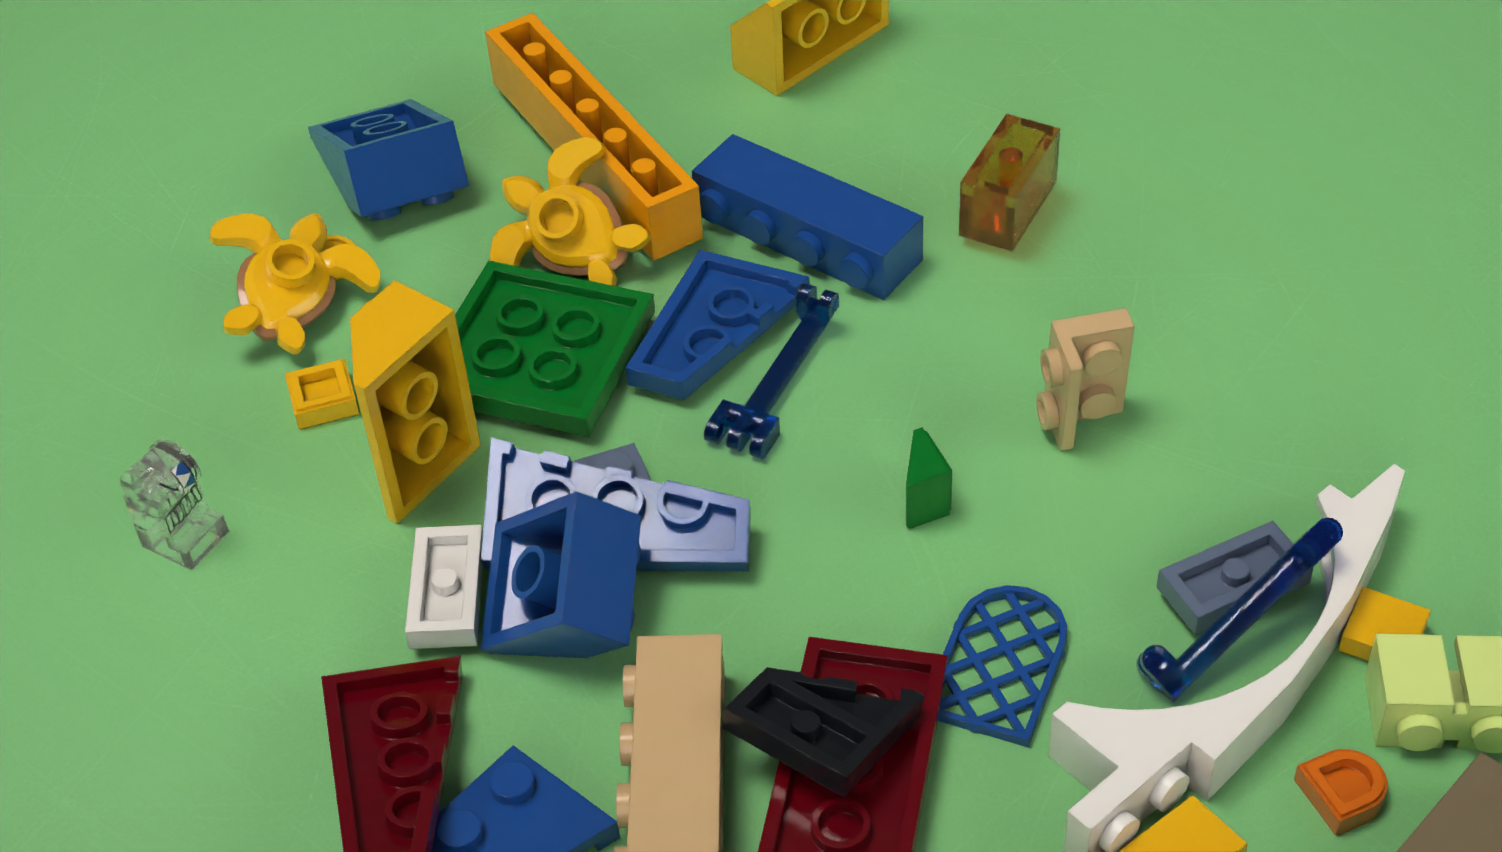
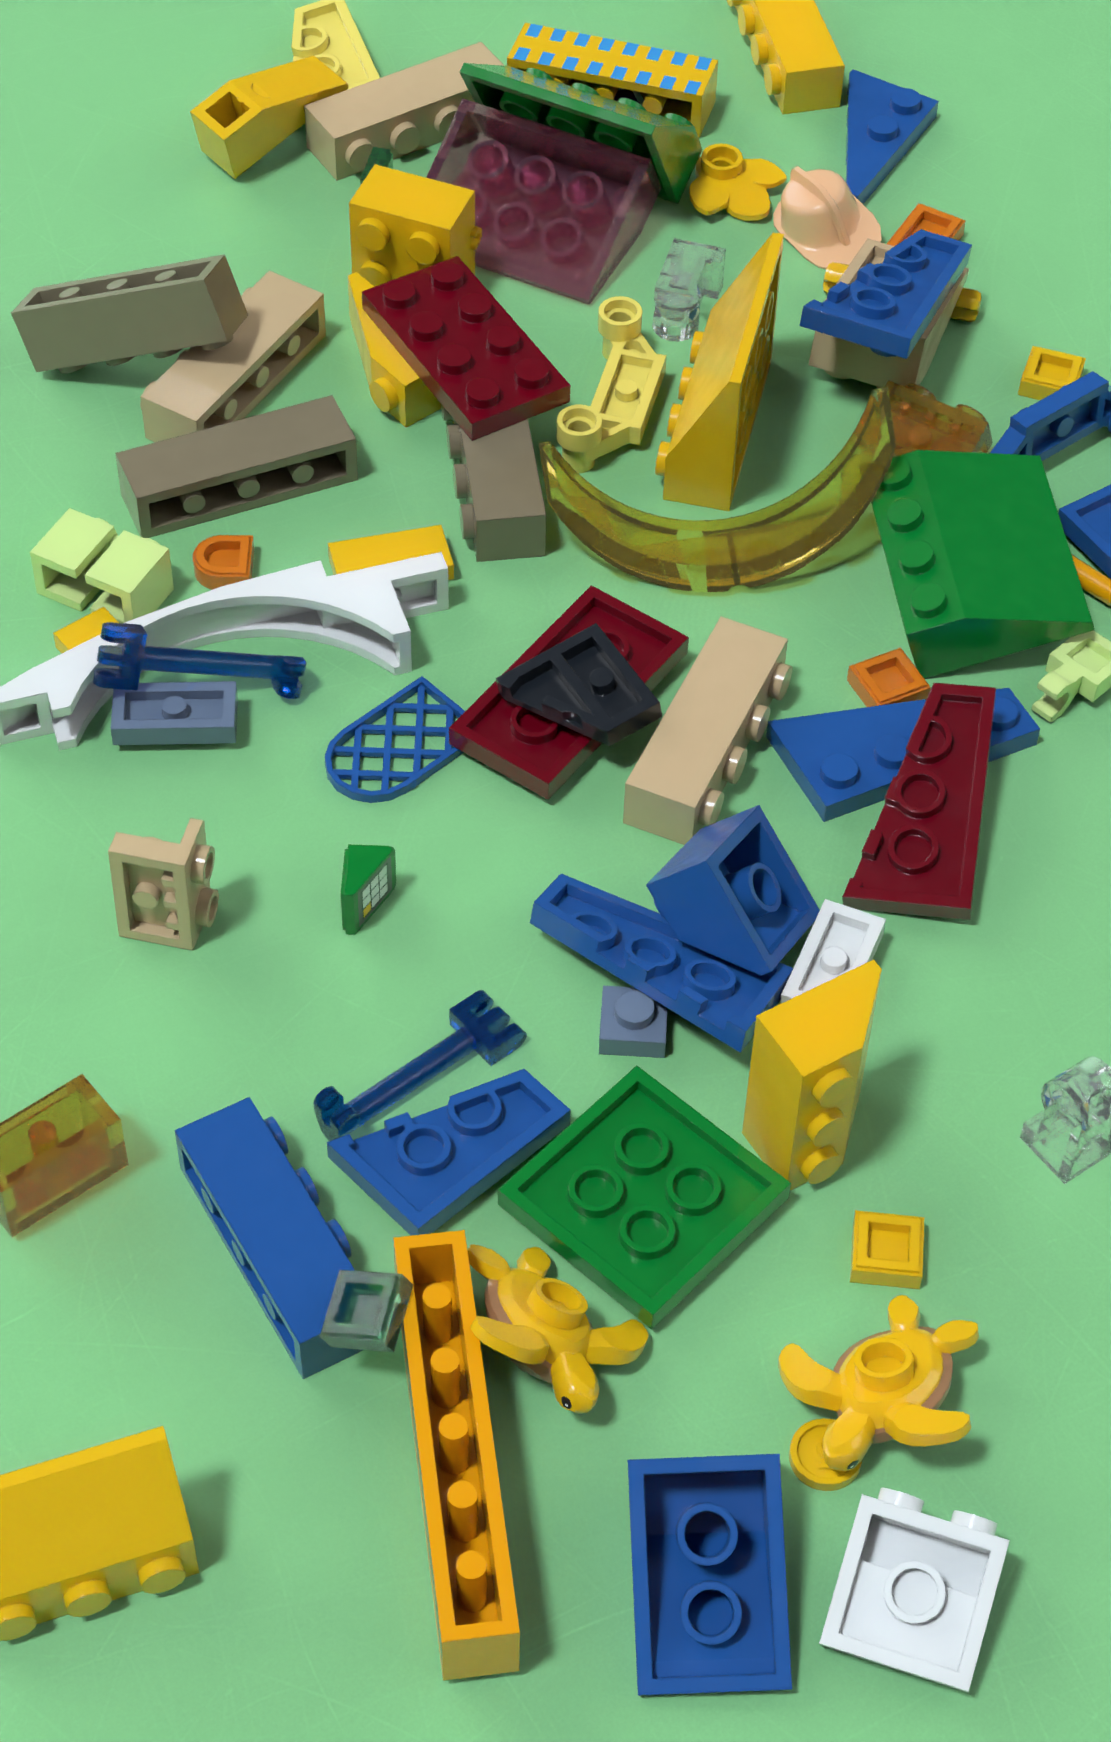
camera: 160 degrees left, 5 degrees up
(230, 183) = (915, 1589): none -> white plate
(690, 141) = (366, 1310): none -> clear green tile

